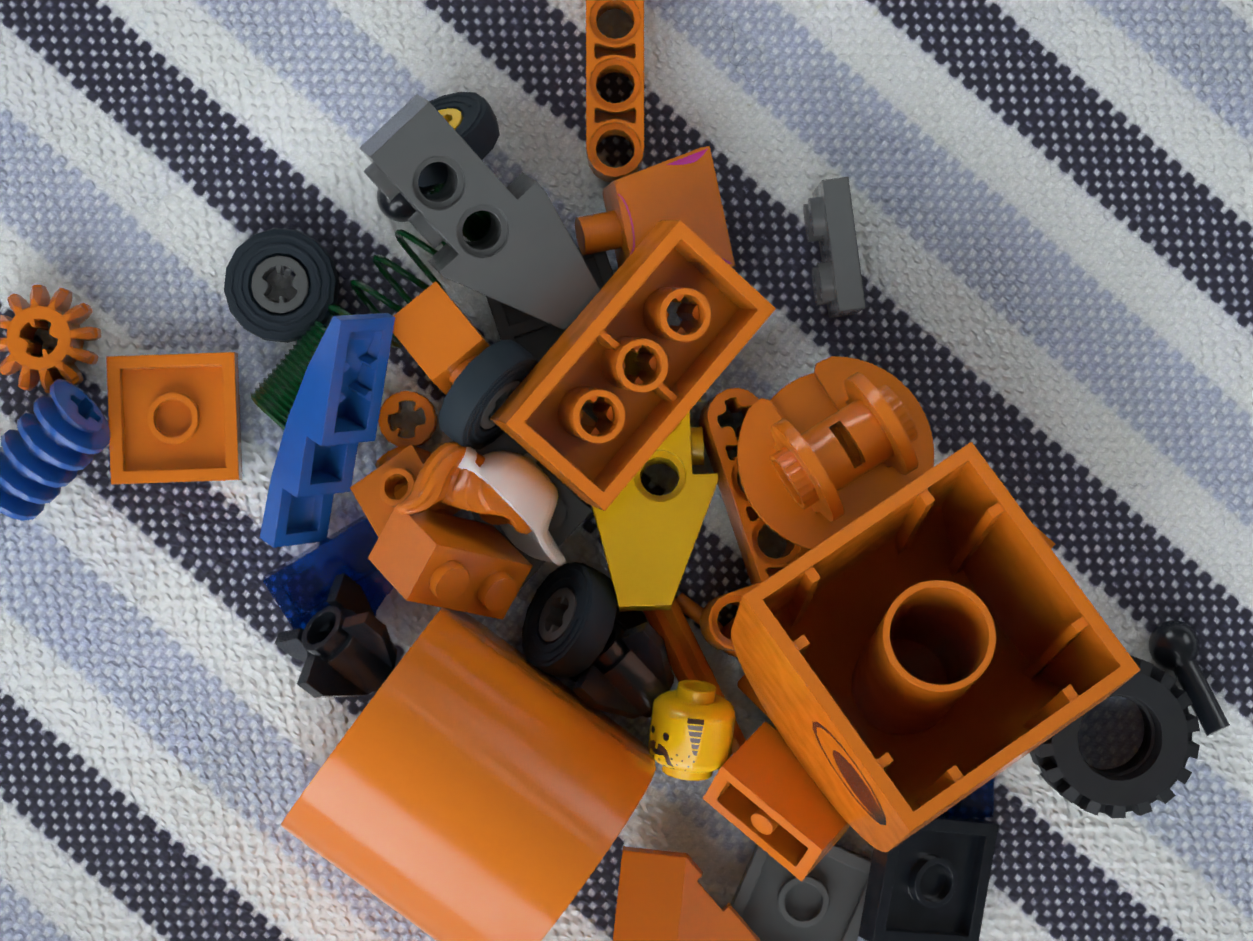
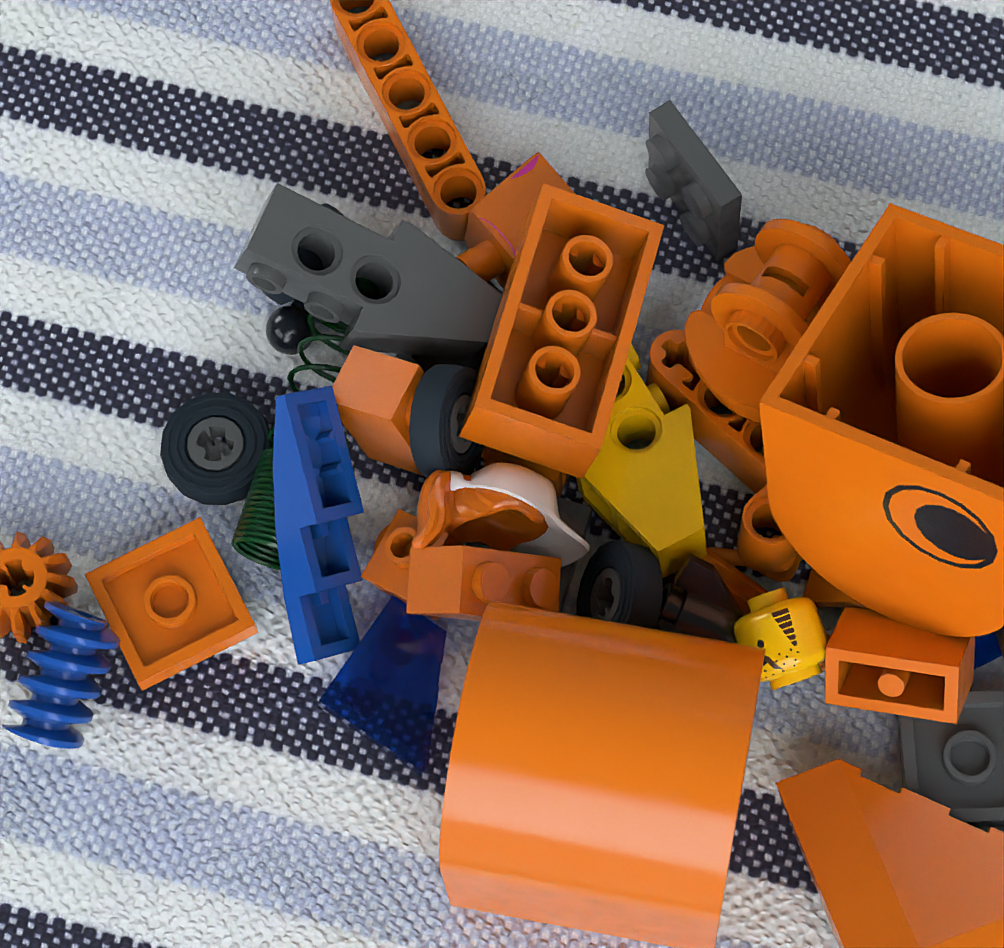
camera: 20 degrees left, 20 degrees down
(342, 645) = (415, 710): black brick -> none
(393, 406) = (379, 489): orange bush -> none

